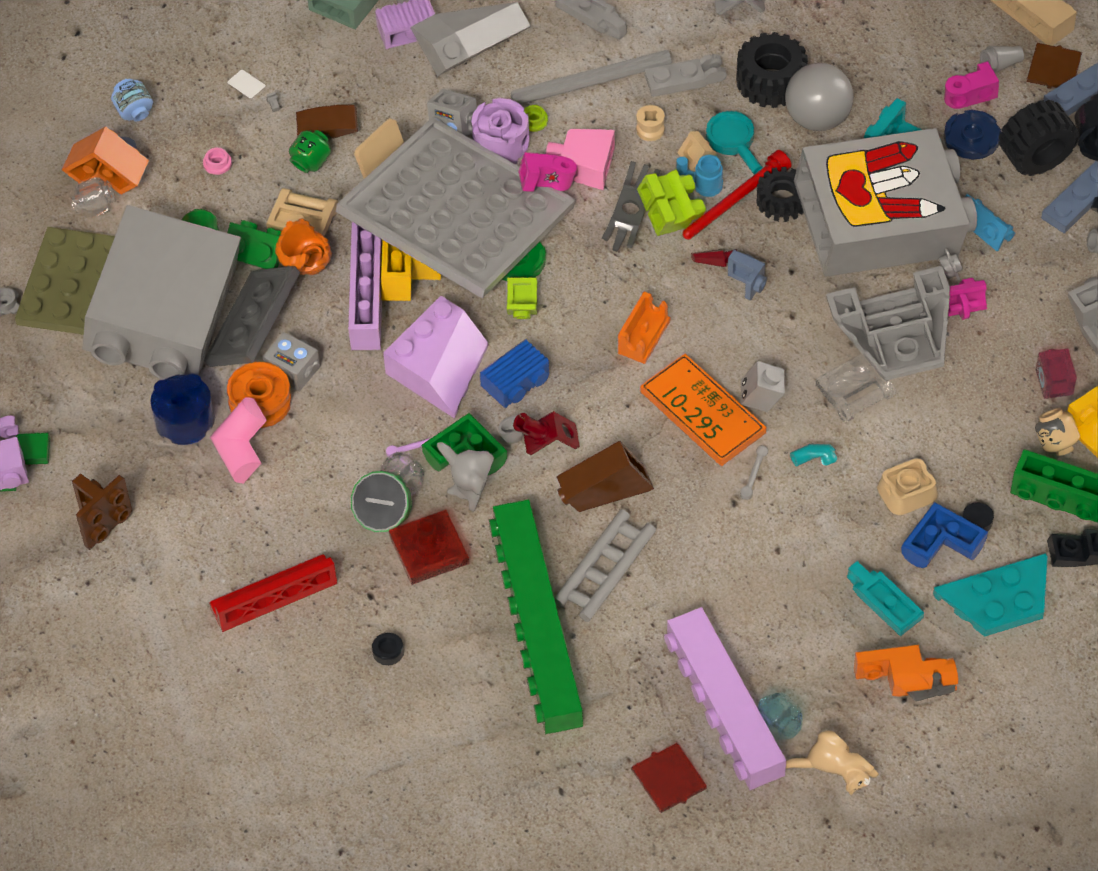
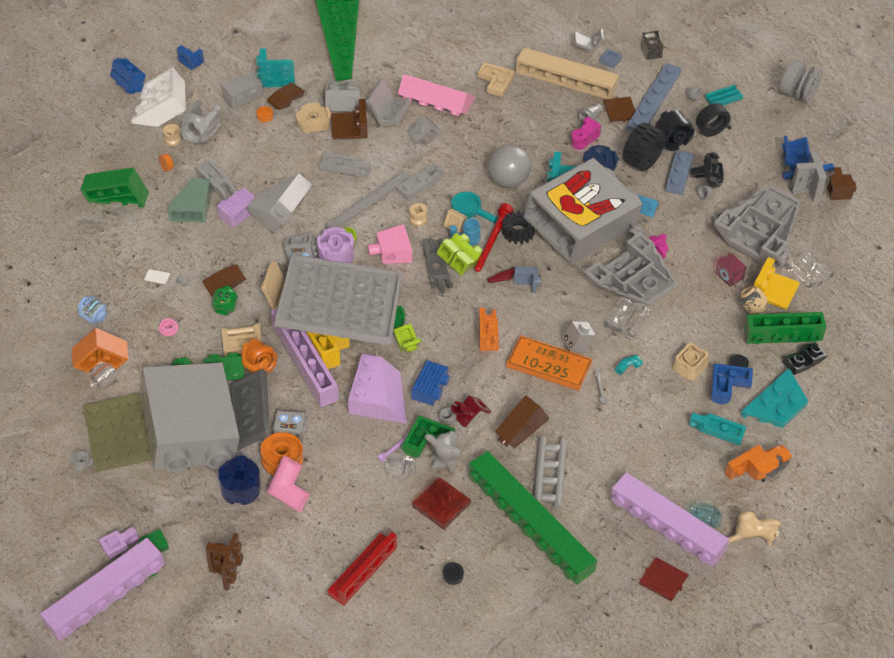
camera: 30 degrees left, 5 degrees down
(381, 501) = (398, 487): black tile -> none
(546, 171) = (380, 260): dark pink leg -> none
(768, 53) = (470, 161): black tyre -> none

